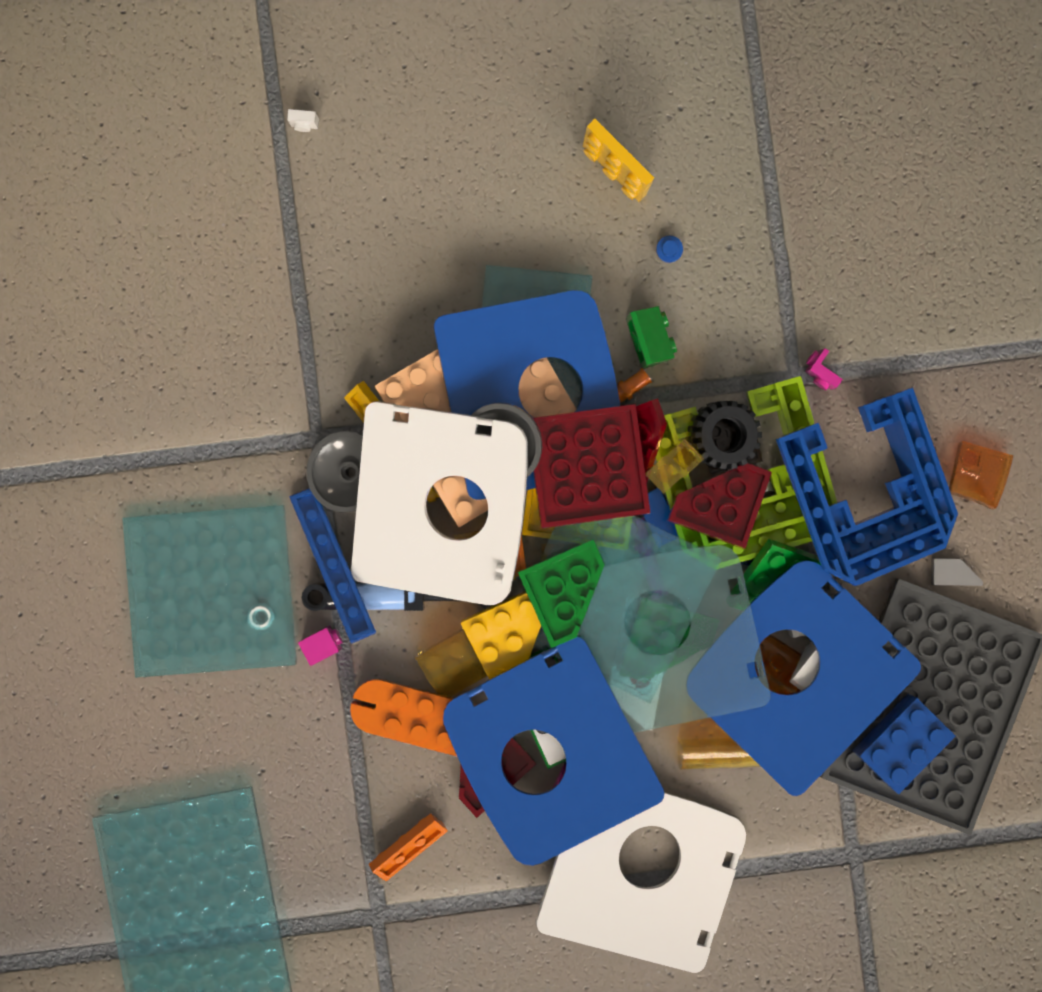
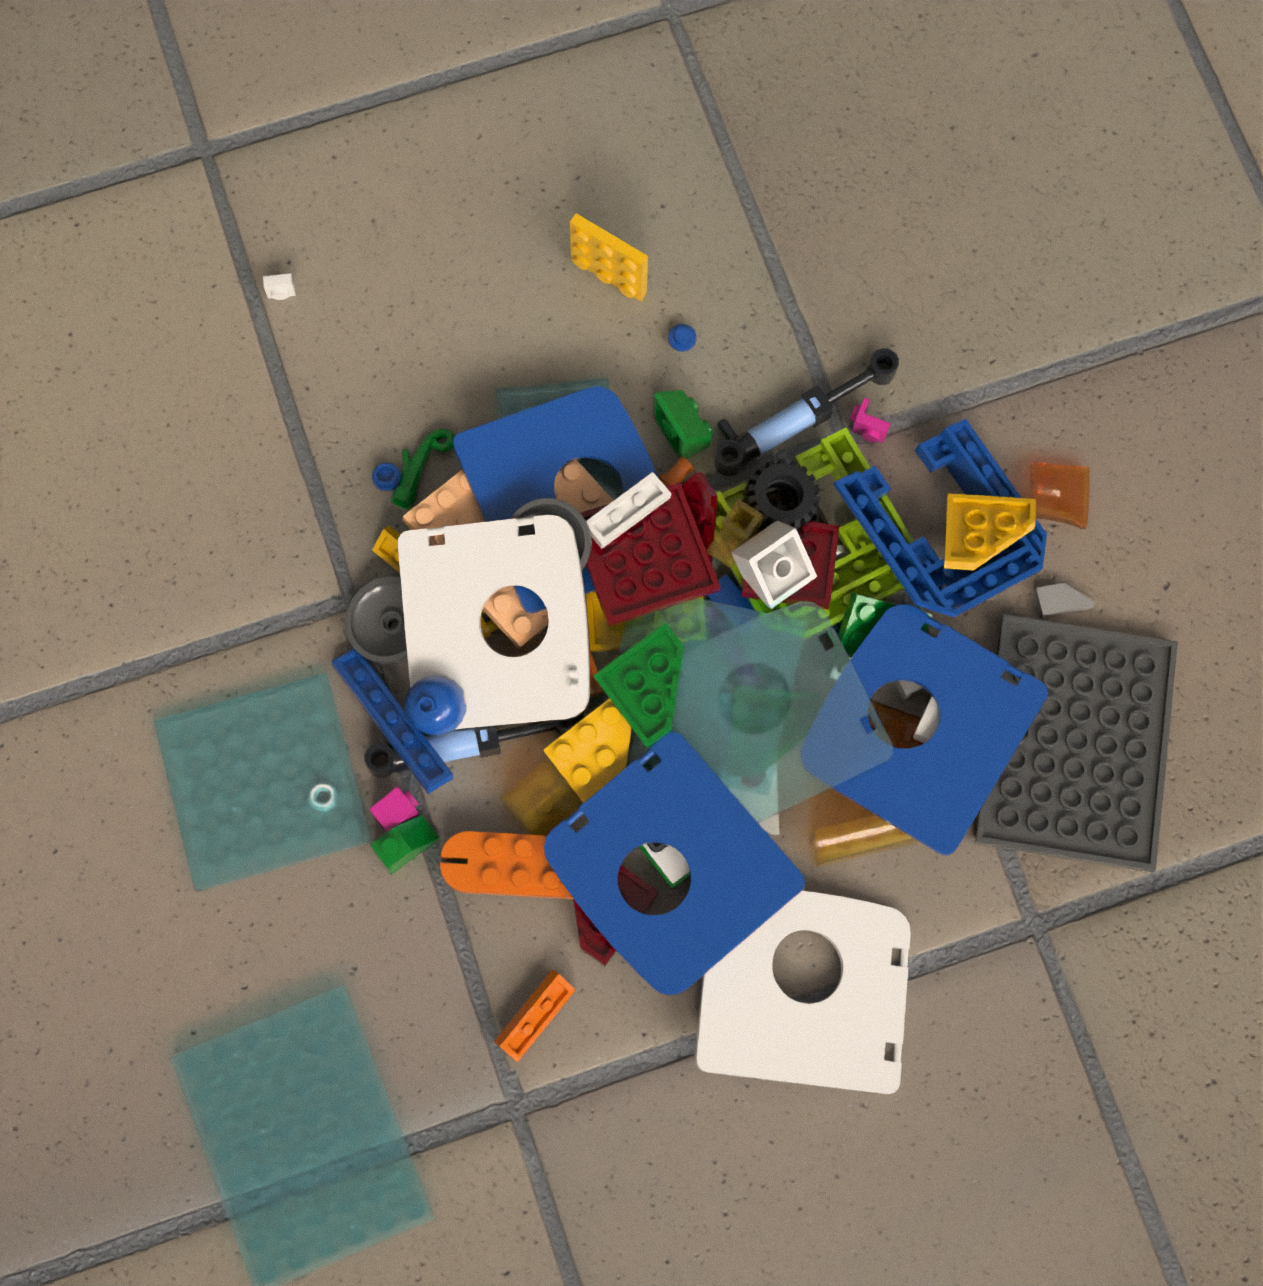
camera: 15 degrees left, 15 degrees down
(324, 675) = (404, 843): none -> green slope
(369, 329) = (386, 476): none -> blue plate
(372, 565) = (435, 705): none -> blue cylinder
(396, 325) = (405, 492): none -> green plant
(581, 426) = (627, 510): none -> white plate
(704, 501) = (774, 563): none -> white slope
(757, 351) = (810, 410): none -> black piece
(902, 503) = (983, 527): none -> yellow plate
(903, 743) = (1053, 780): blue brick -> none

